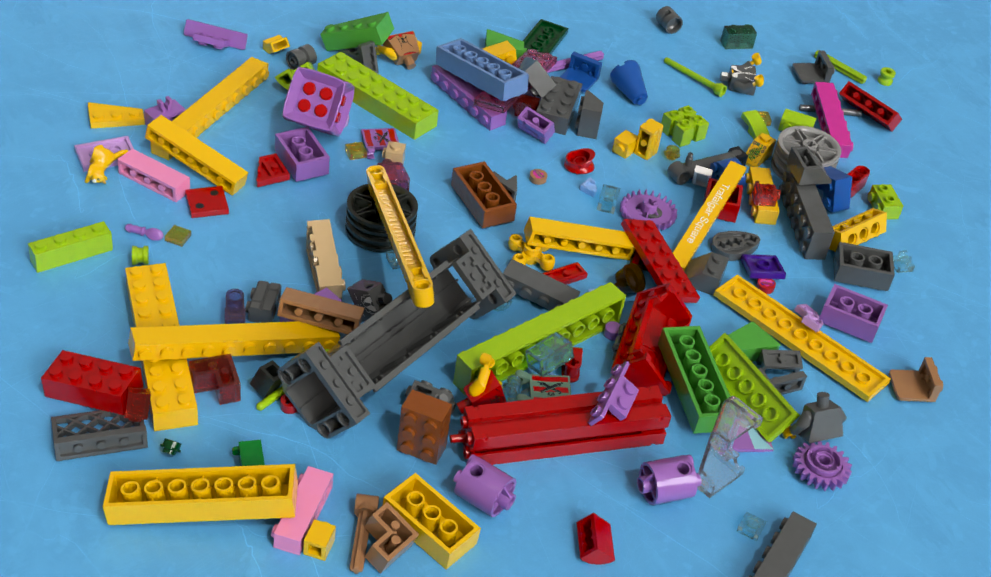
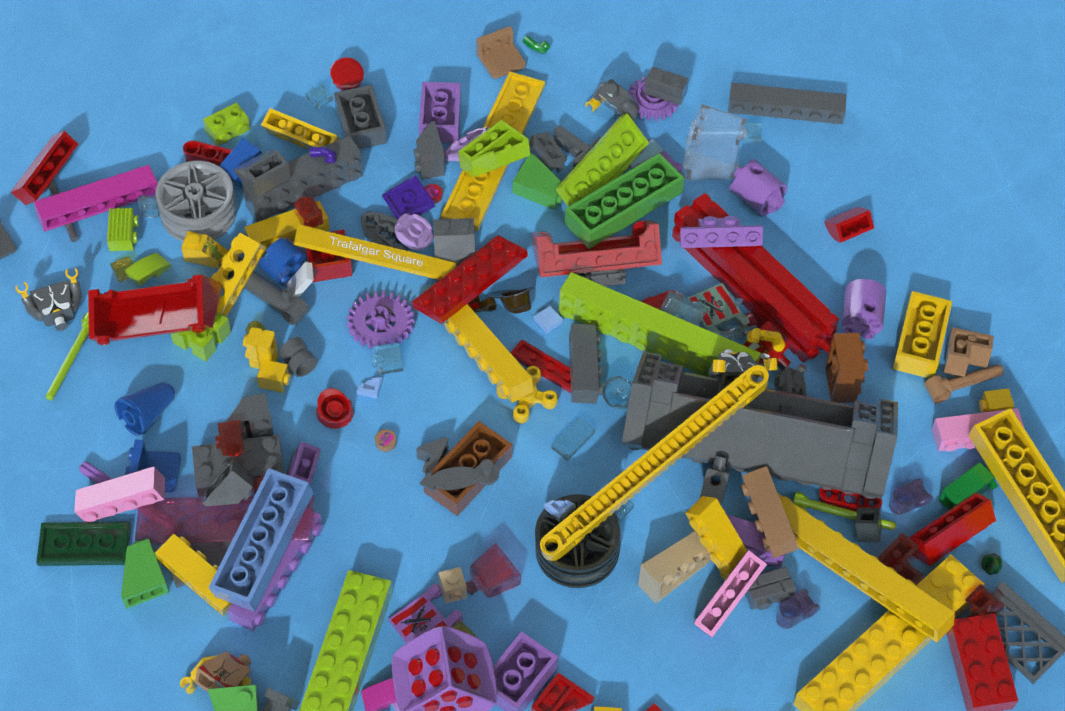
camera: 110 degrees left, 15 degrees up
(221, 429) = (953, 528): none -> red brick
(272, 263) = (729, 593): none -> bright pink brick
(275, 424) = (912, 495): none -> clear purple piece
(320, 266) = (716, 534): none -> yellow brick
(407, 199) = (559, 509): none -> light blue tile
(458, 325) = (733, 364): none -> dark grey torso
(472, 175) = (461, 477): none -> dark grey brick
(562, 47) = (120, 494): none -> bright pink brick
(572, 88) = (230, 438): none -> clear red brick
(634, 157) = (298, 357): none -> dark grey wheel
(710, 102) = (153, 310): none -> red windscreen
(721, 142) = (242, 270): none -> yellow brick
(729, 248) = (414, 231): none -> lavender tile
(790, 315) = (493, 149): none -> lime wedge
(808, 286) = (429, 153): none -> dark grey slope
(816, 208) = (323, 152): none -> dark purple arm
(823, 458) = (666, 85): none -> dark grey brick
(920, 282) = (346, 73): none -> red piece
(920, 414) = (533, 45): none -> green arm

